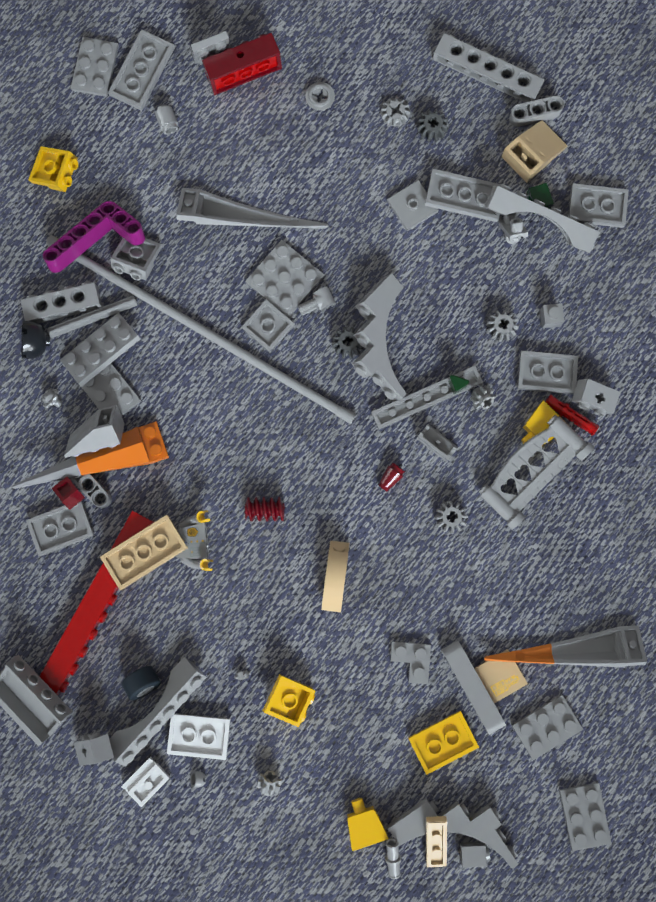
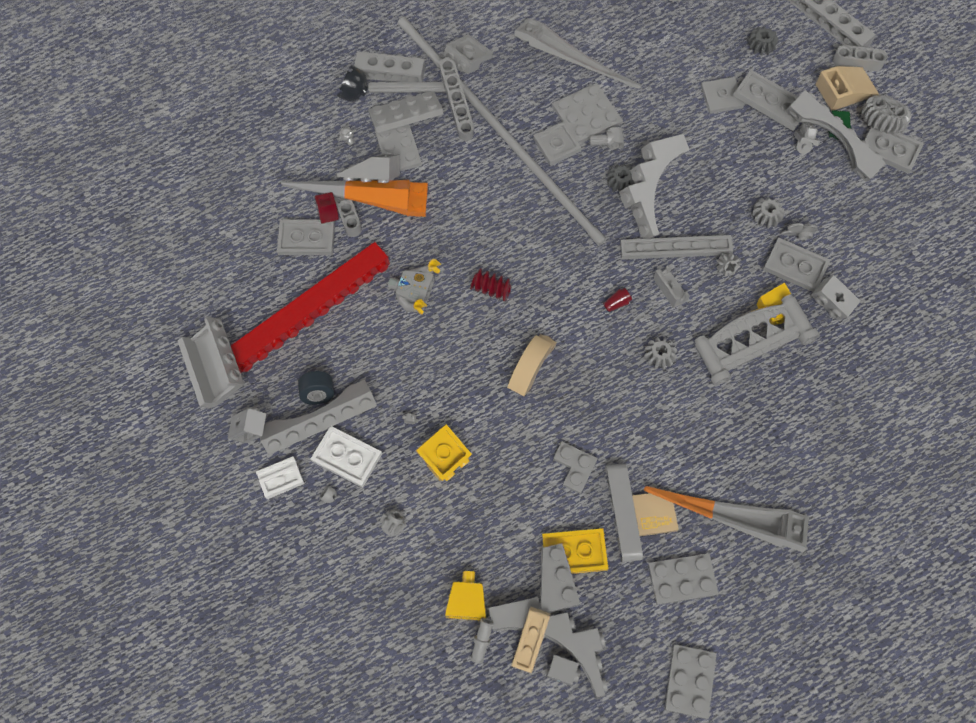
camera: 20 degrees right, 15 degrees down
(89, 231) = (438, 21): magenta beam -> none
(144, 308) = (453, 92): none -> light grey beam
(144, 552) = (369, 276): tan plate -> none
(397, 119) = (733, 27): light grey gear -> none
(440, 782) = (557, 583): none -> light grey wing
(457, 383) = (709, 241): dark green slope -> none
(543, 335) = (802, 231): none -> light grey plate
(552, 315) = (818, 216): light grey brick -> none
(575, 417) = (809, 310): red pin -> none
(582, 171) = (886, 114): none -> light grey gear

